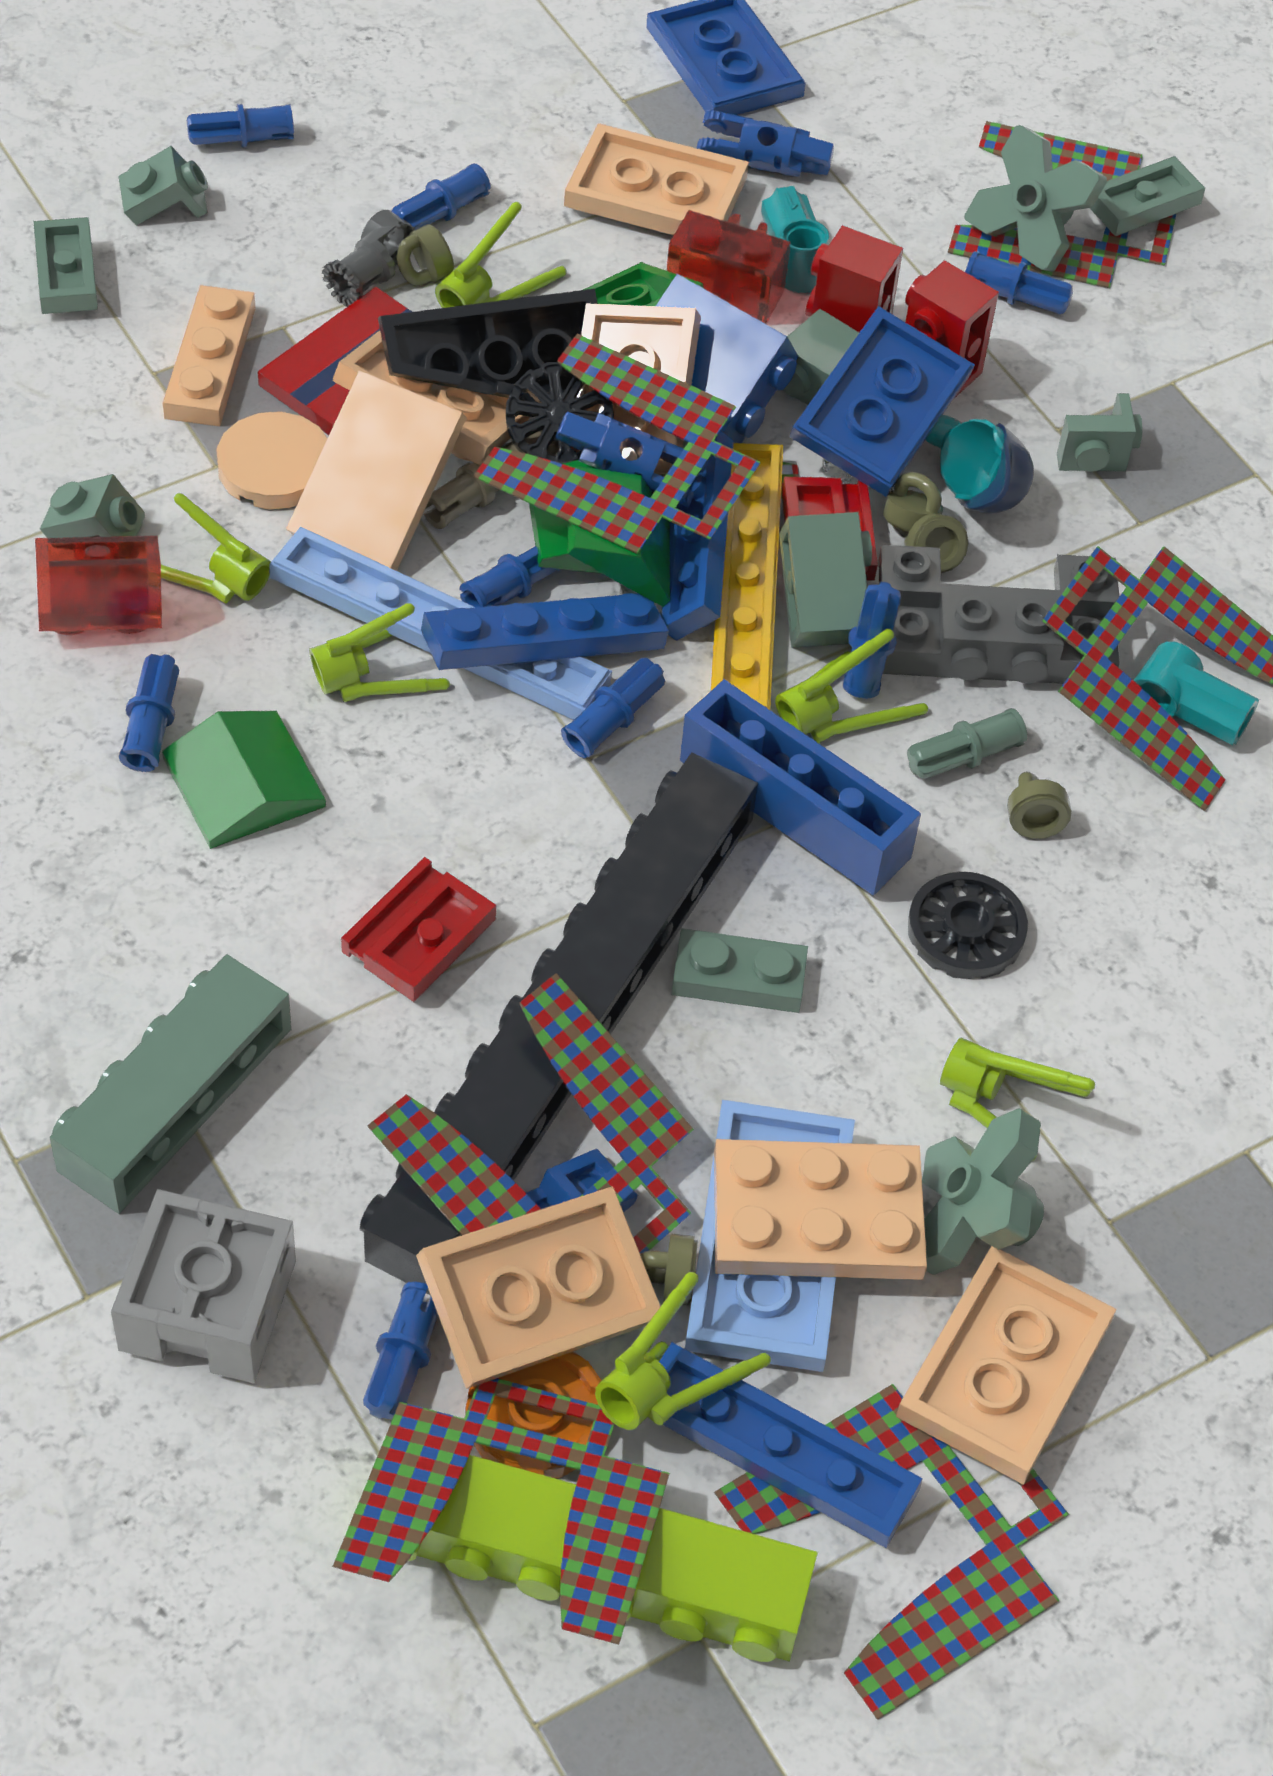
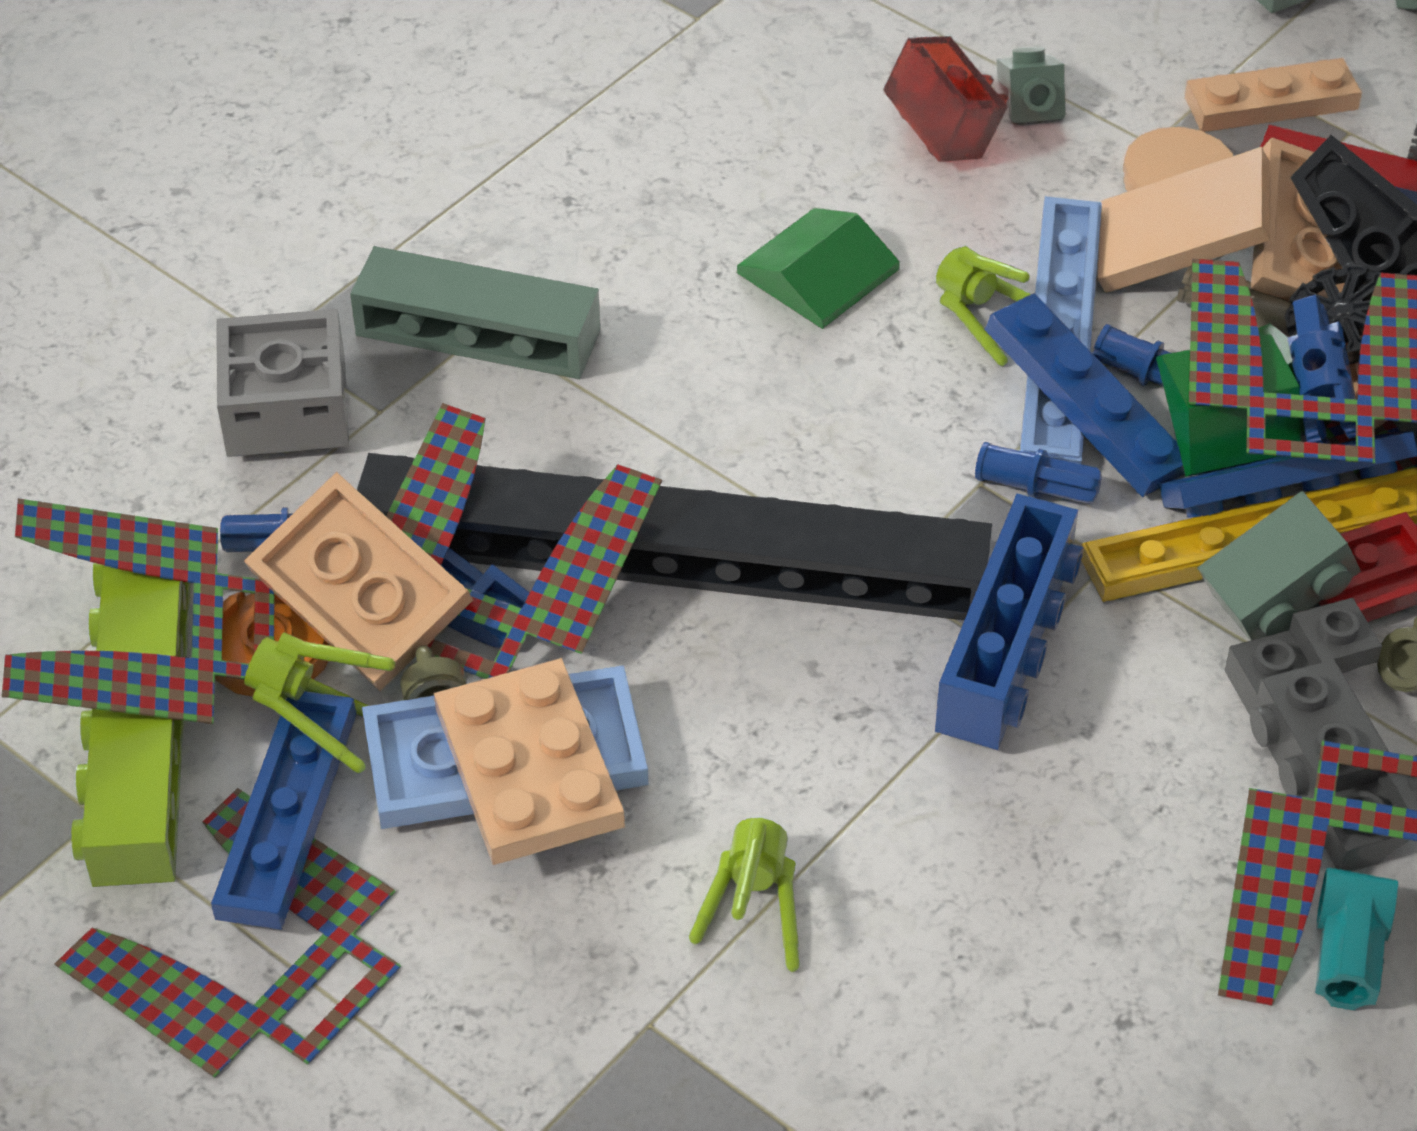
camera: 75 degrees right, 5 degrees down
(149, 713) = (844, 182): blue axle -> none
(235, 565) = (1034, 177): lime plant -> none
(419, 929) = (710, 415): red plate -> none
(740, 970) = (791, 654): sand green plate -> none
(813, 701) = (1135, 615): lime plant -> none
(876, 615) = (1219, 623): blue axle -> none
(967, 744) = (1165, 756): sand green axle -> none
(967, 924) = (943, 817): black wheel -> none
(982, 1191) = (598, 887): sand green plant -> none
(1006, 1364) = (436, 961): light nougat plate -> none
(1038, 807) = (1117, 829): olive tile -> none

